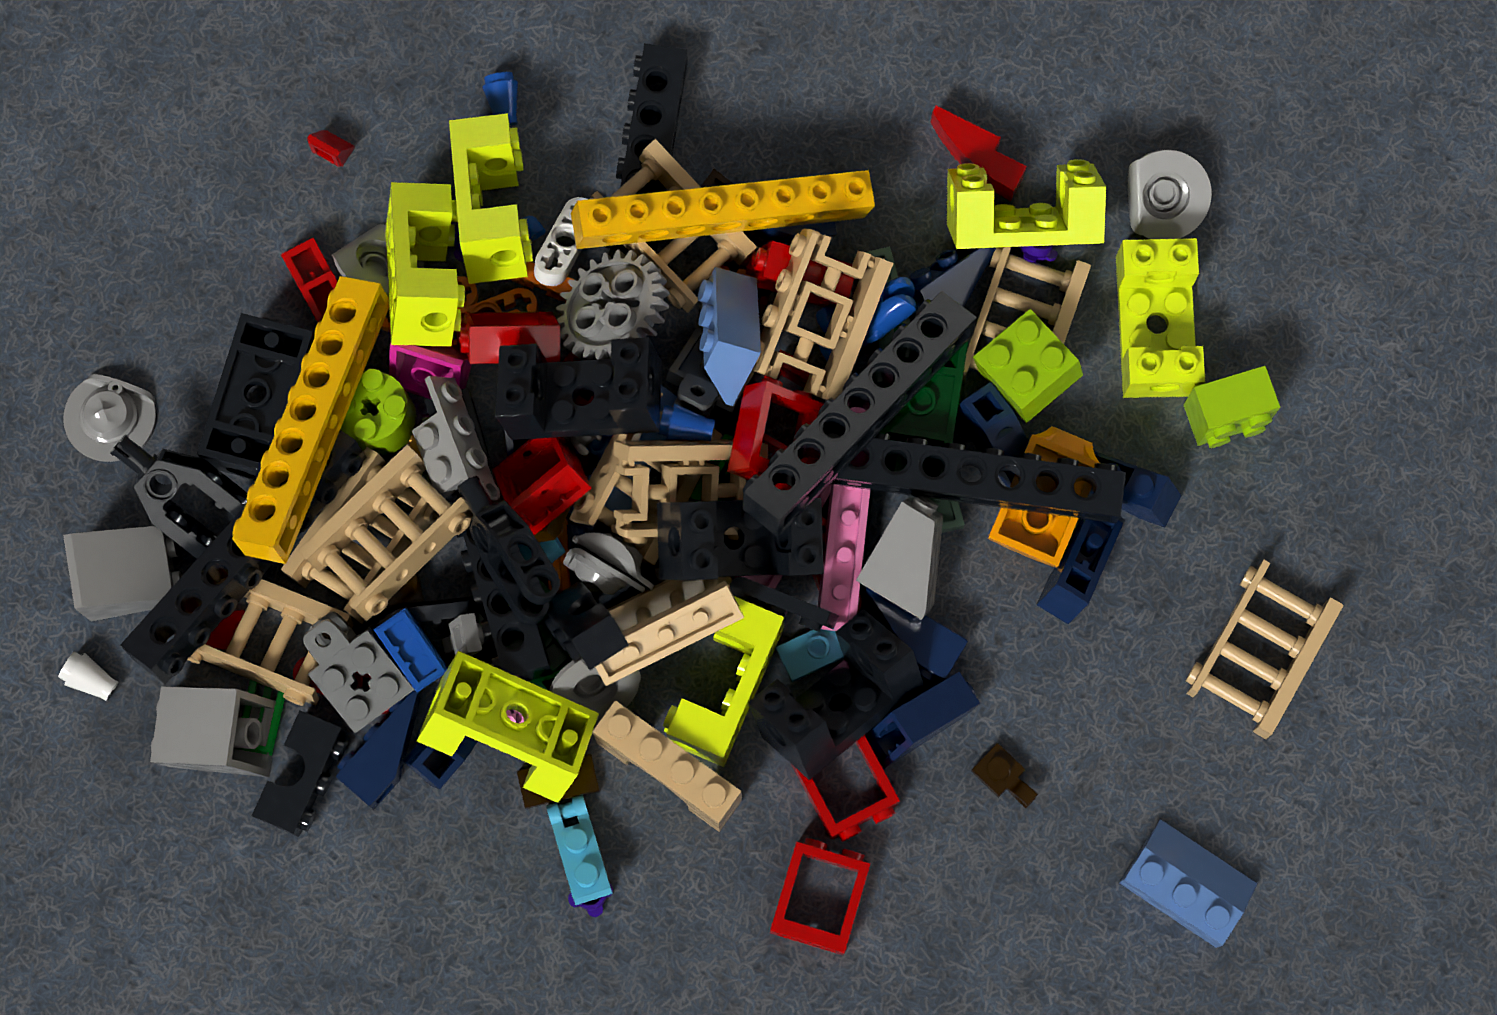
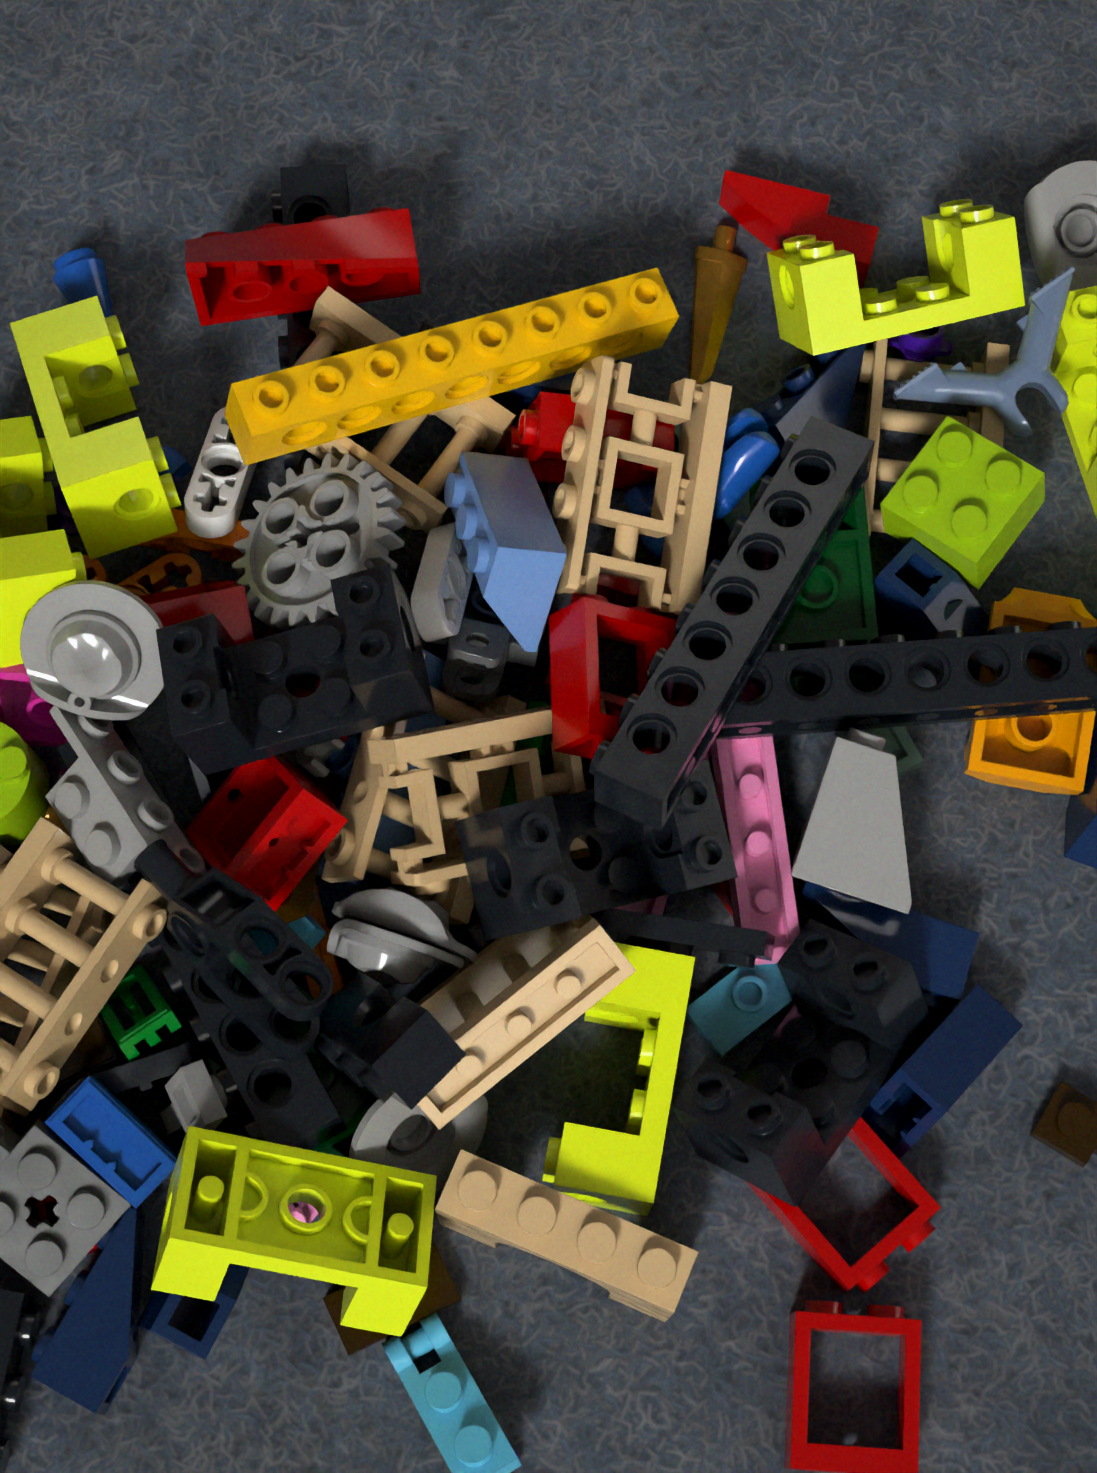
camera: 15 degrees left, 5 degrees down
(444, 585) = (145, 1025): none -> green tile
(459, 349) = (93, 650): none -> light grey hat
(640, 117) = (292, 265): none -> red wedge
(682, 351) = (441, 585): none -> white beam
(684, 424) = (470, 695): blue cone -> none
(912, 182) = (715, 290): none -> pearl gold bar
(1074, 294) = (1030, 369): none -> sand blue piece

